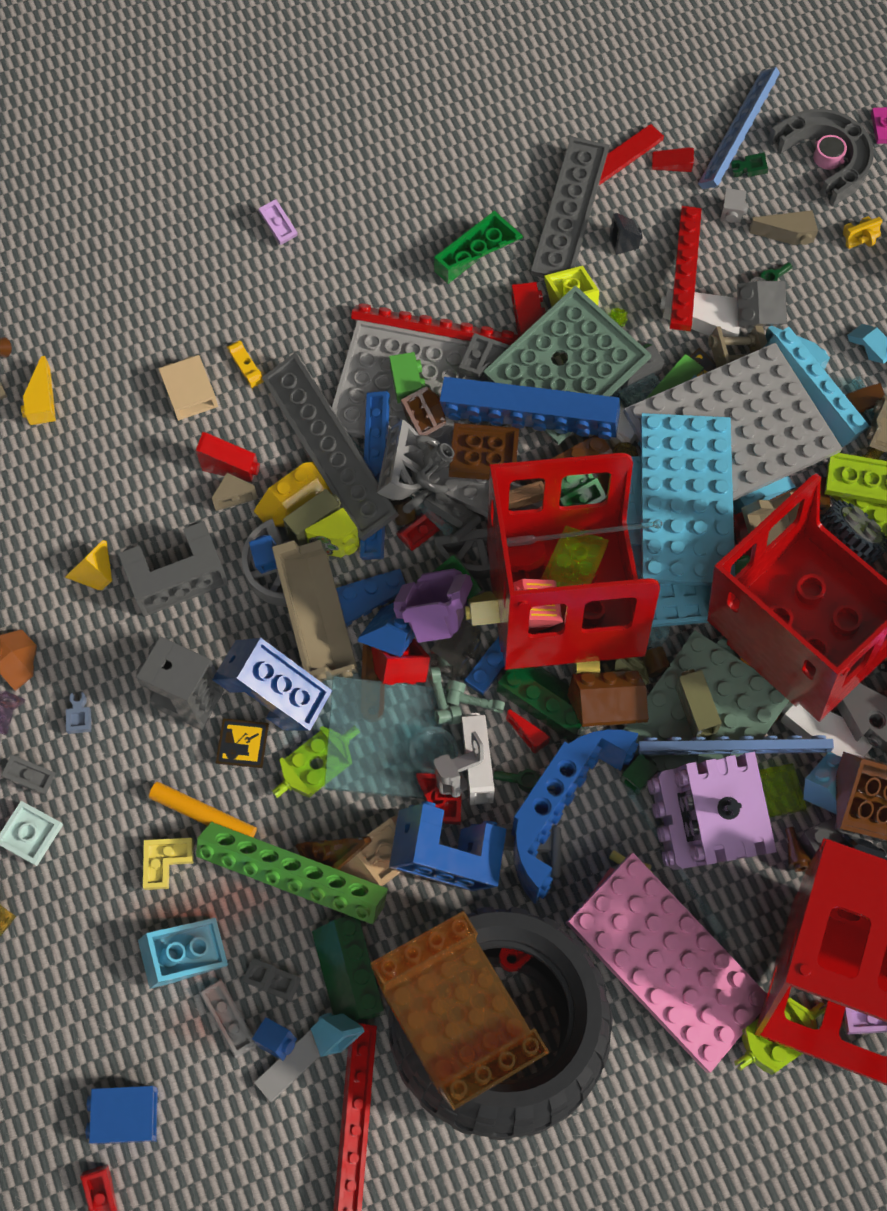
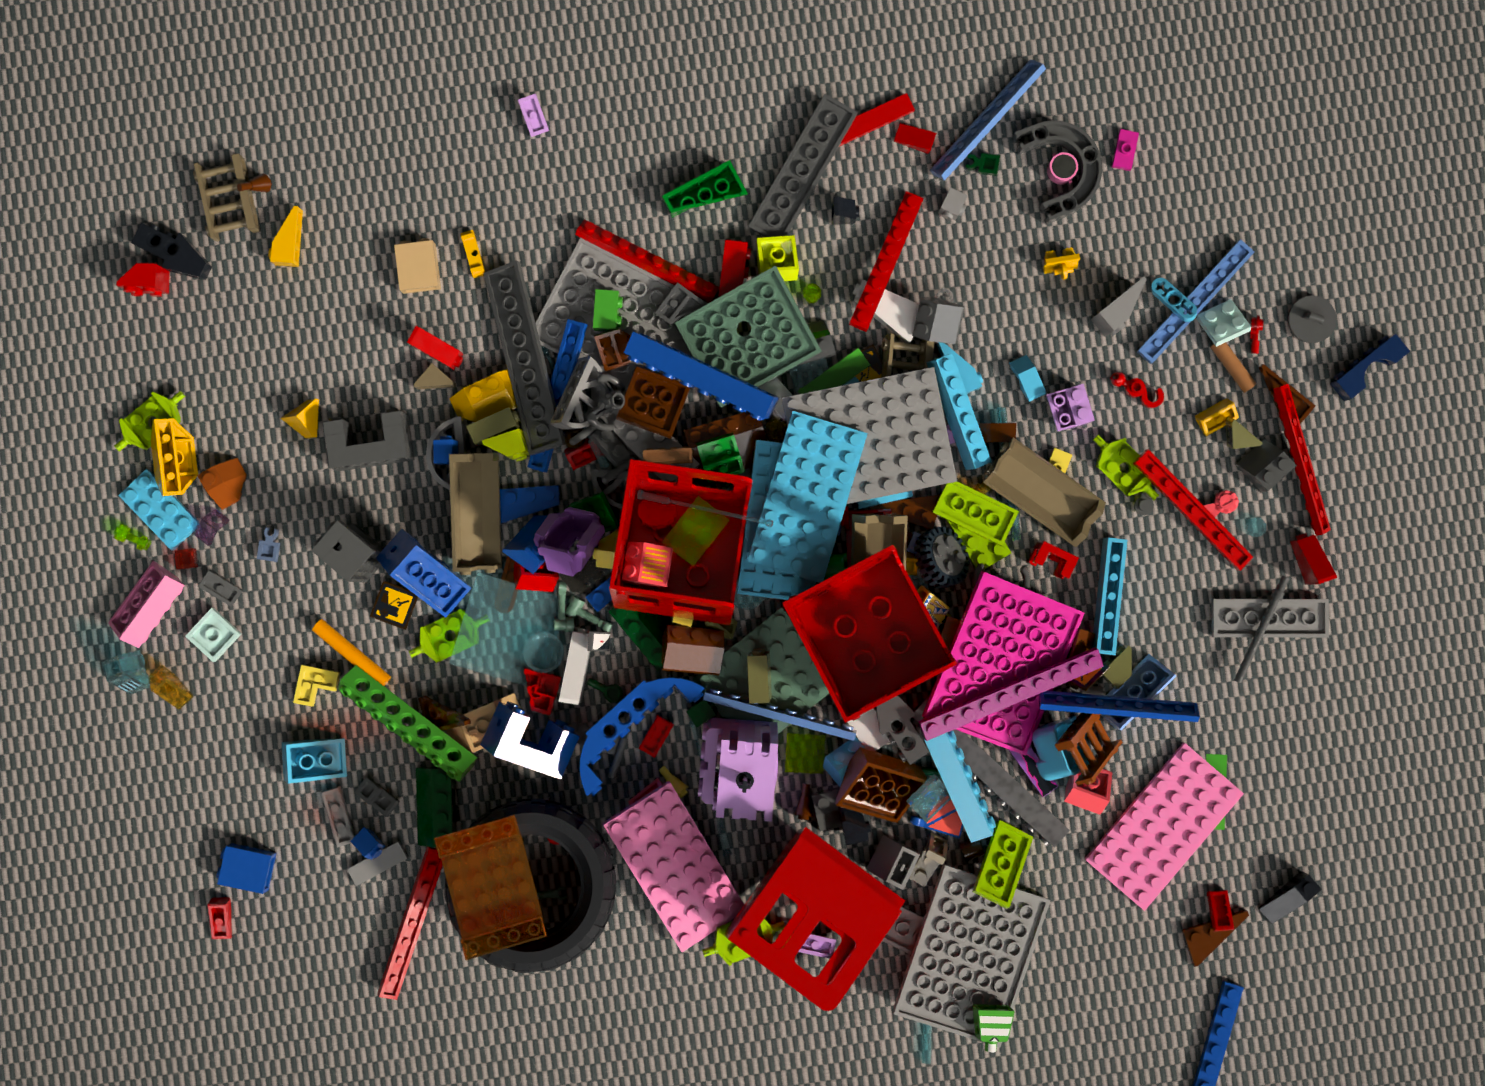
camera: 10 degrees right, 20 degrees up
(335, 1033) = (413, 851): medium azure slope -> none
(448, 769) = (551, 679): light grey piece -> none
(495, 720) = (598, 641): none -> slope
(530, 734) = (624, 656): red slope -> none
(594, 816) = (656, 736): none -> red plate
(655, 661) = (743, 623): dark brown brick -> none
(773, 275) = (960, 287): dark green plate -> none
(788, 228) = (997, 241): dark tan slope -> none

